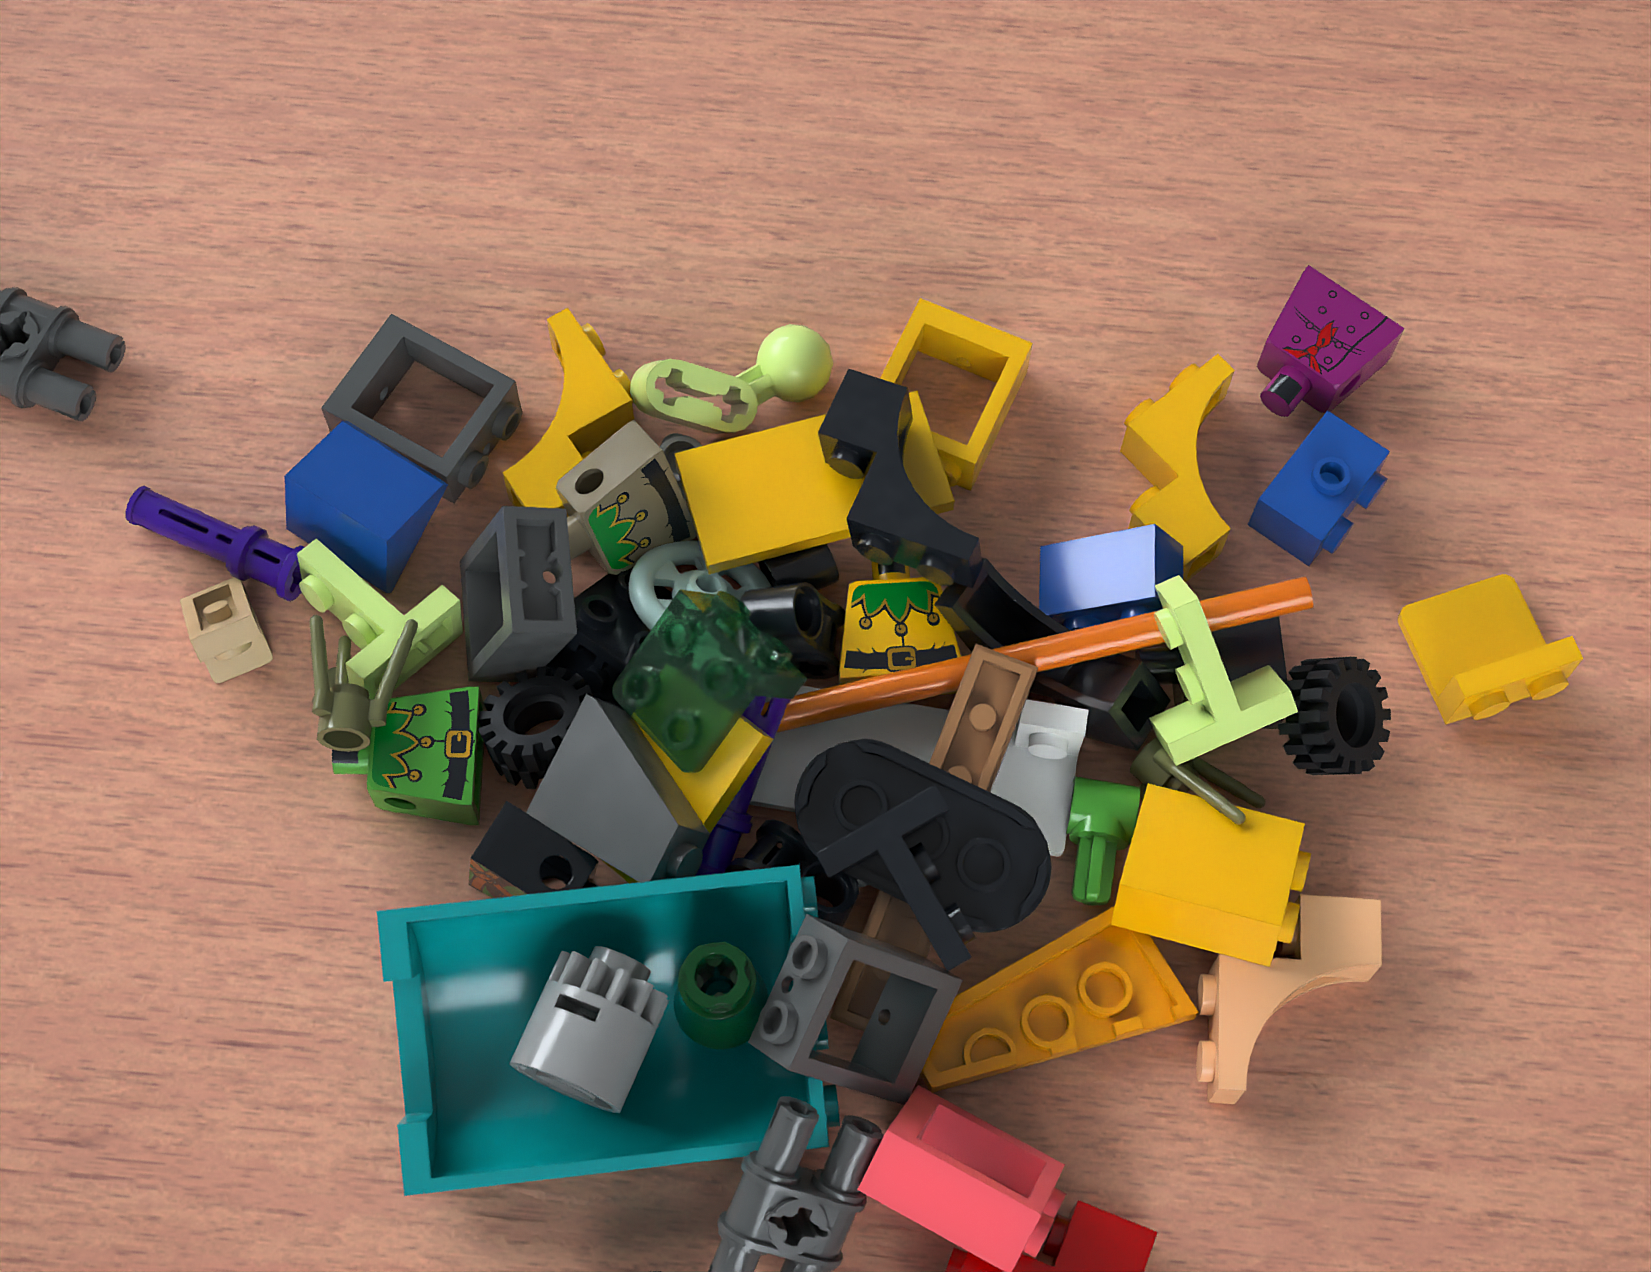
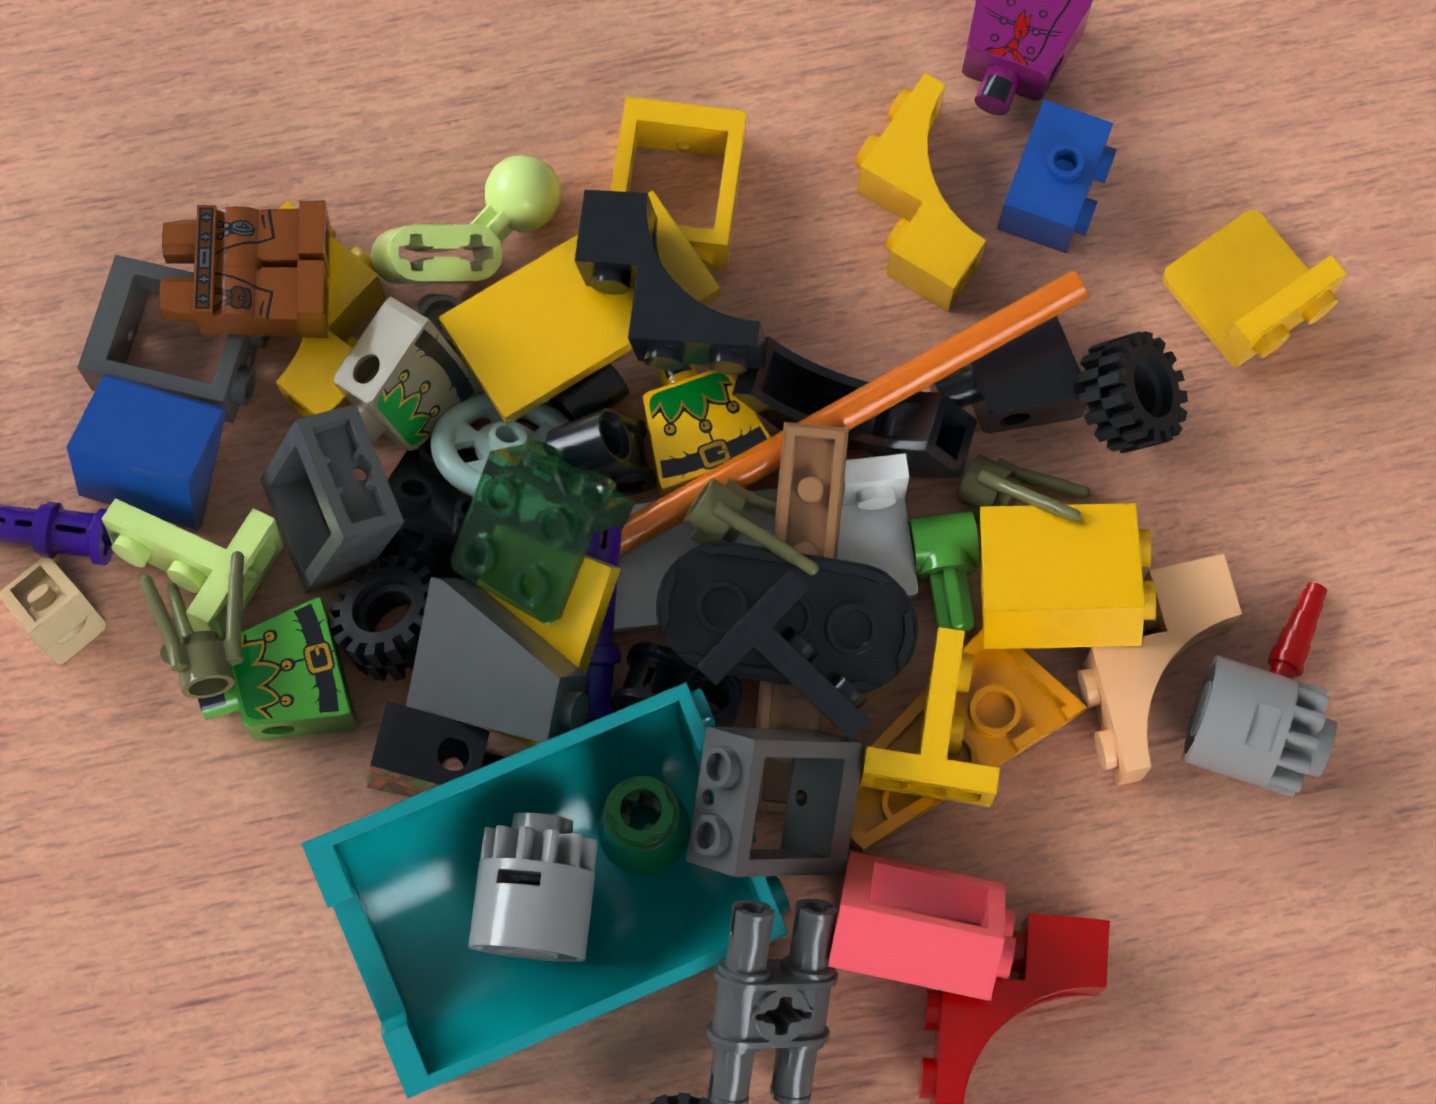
camera: 15 degrees left, 5 degrees up
(511, 361) = (251, 271): none -> dark orange hips
(889, 717) = (721, 514): none -> olive plant
(1020, 1028) = (941, 734): none -> yellow bracket
(1107, 575) = (888, 320): brick -> none
(1215, 707) = (1025, 416): yellowish green bracket -> none
(1368, 1084) = (1259, 727): none -> light grey gear
(1428, 1012) = (1295, 639): none -> red animal

